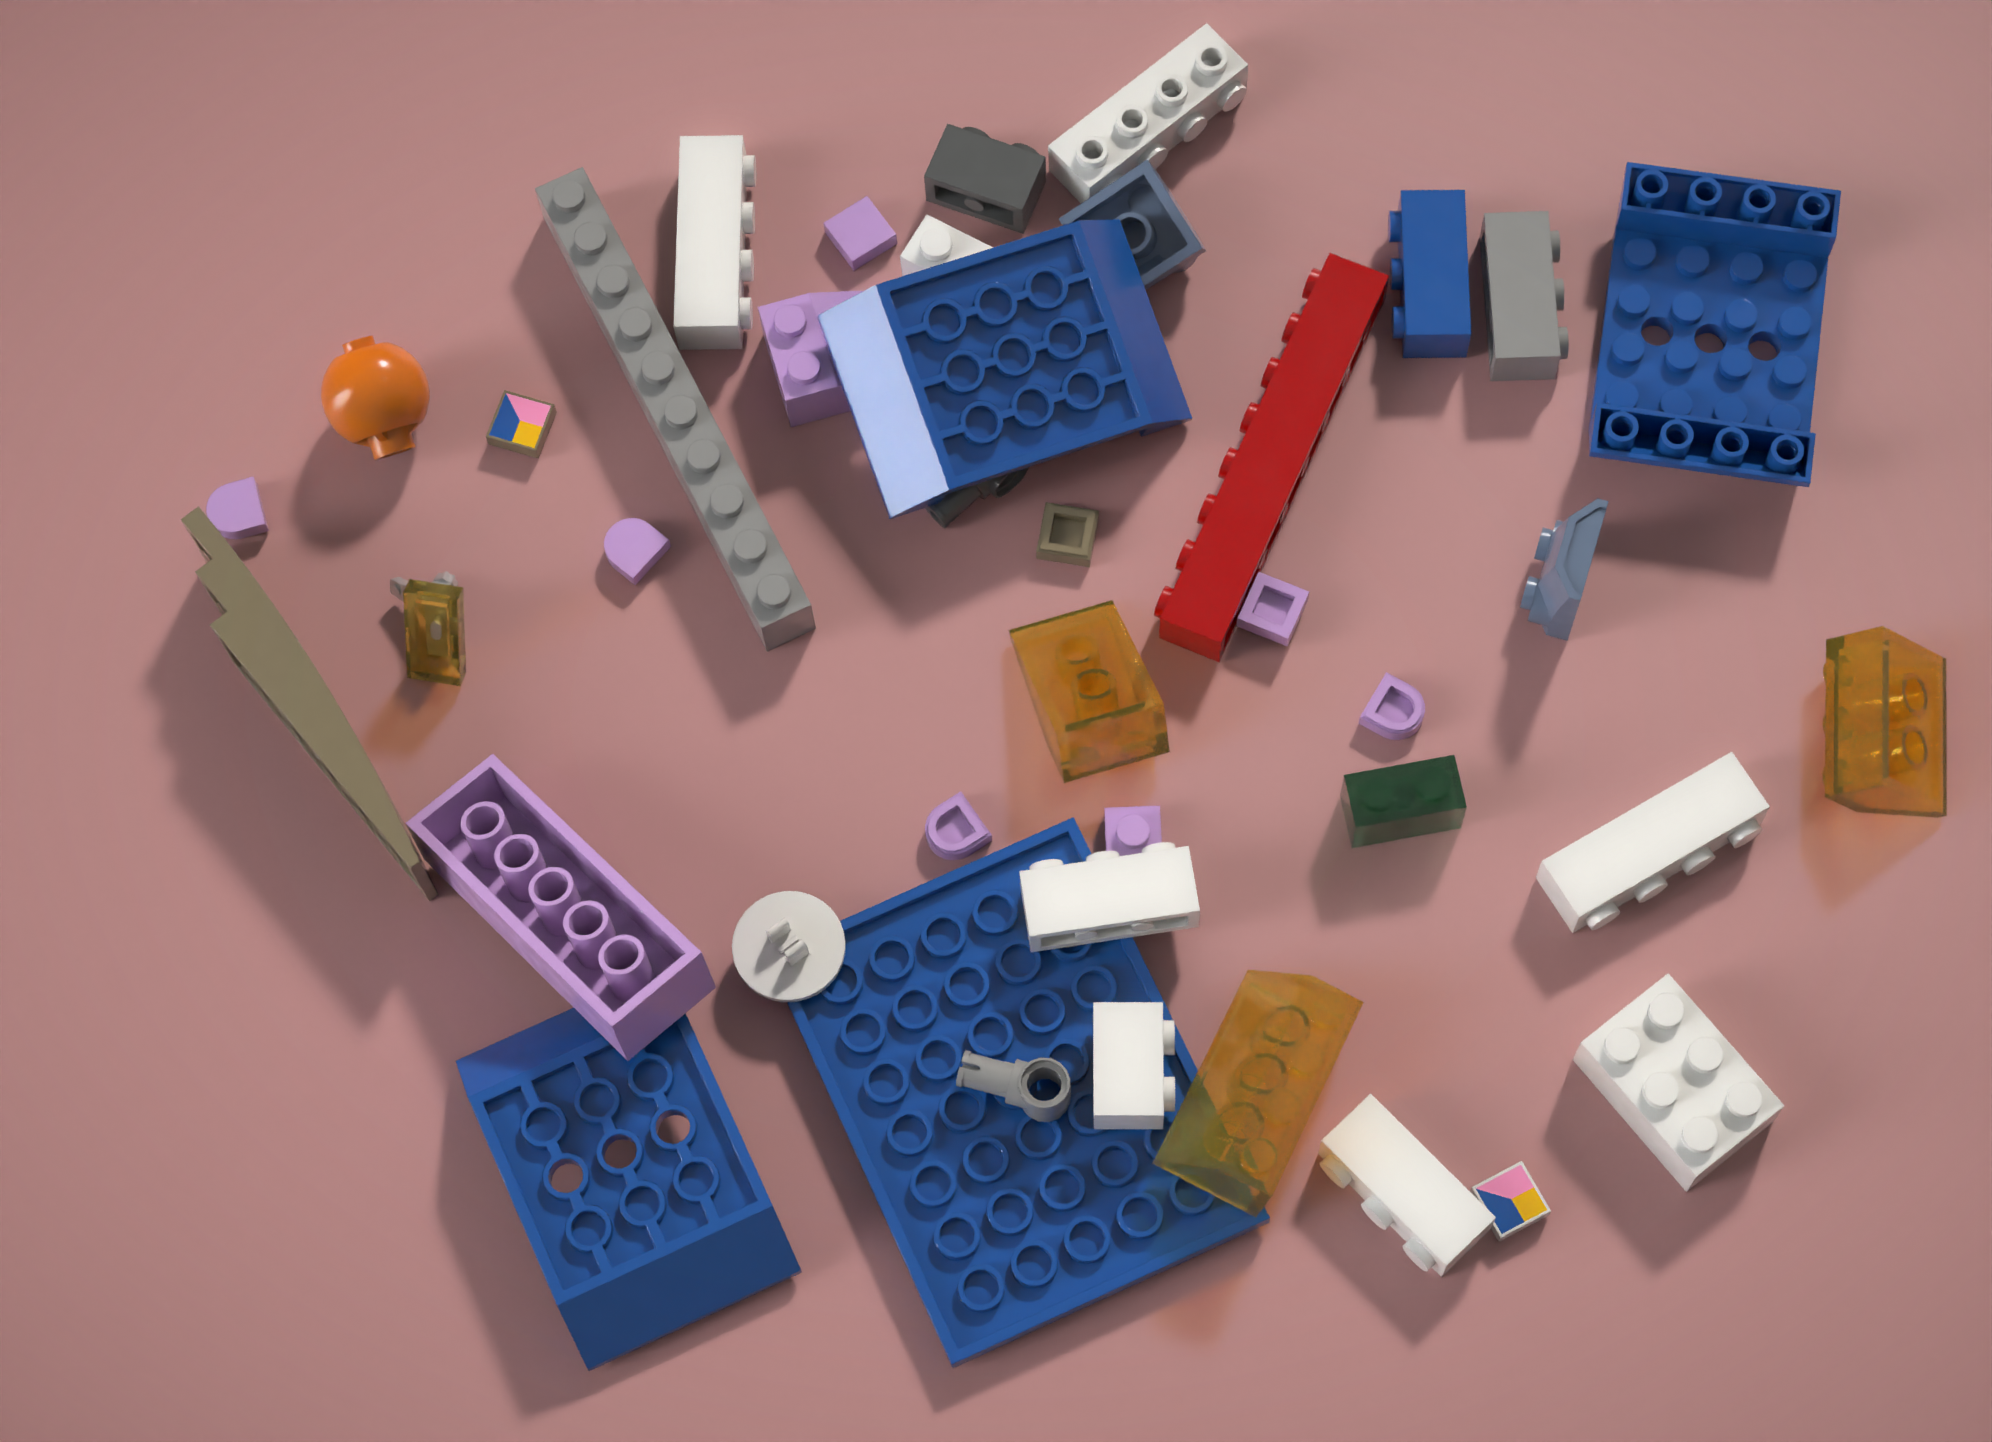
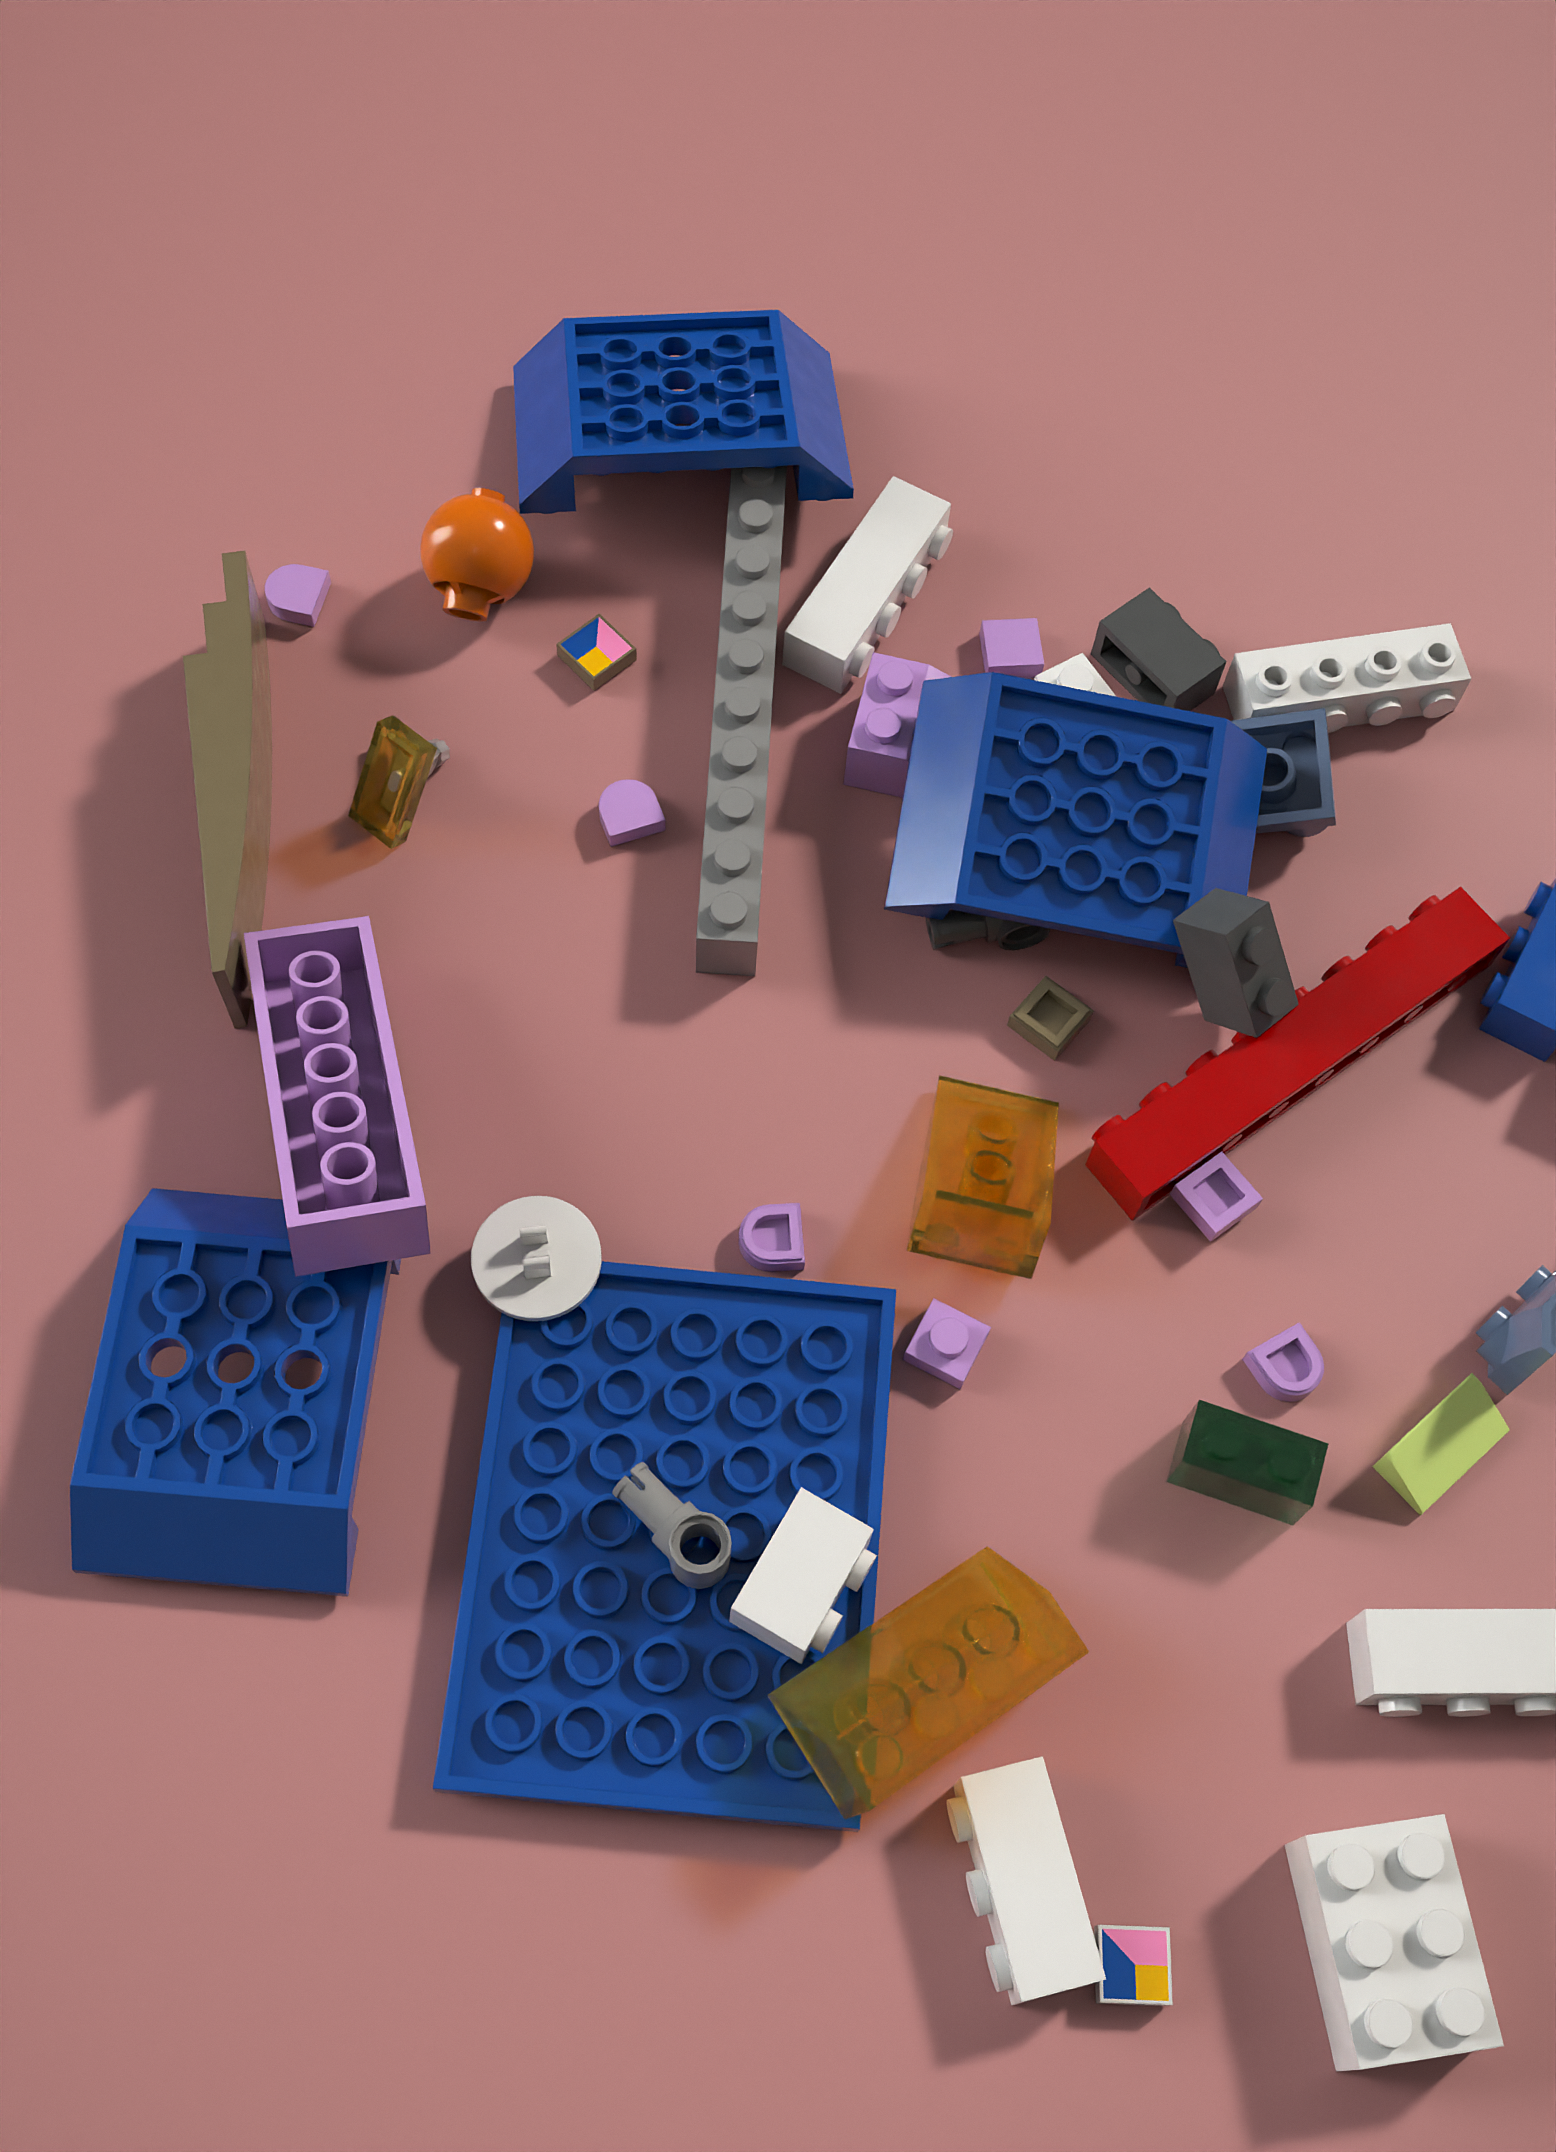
camera: 20 degrees right, 5 degrees down
(403, 217) = (604, 403): none -> blue slope
(1109, 897) = (883, 1388): white brick -> none
(1190, 416) = (1236, 961): none -> dark grey brick
(1539, 706) = (1443, 1445): none -> yellowish green slope

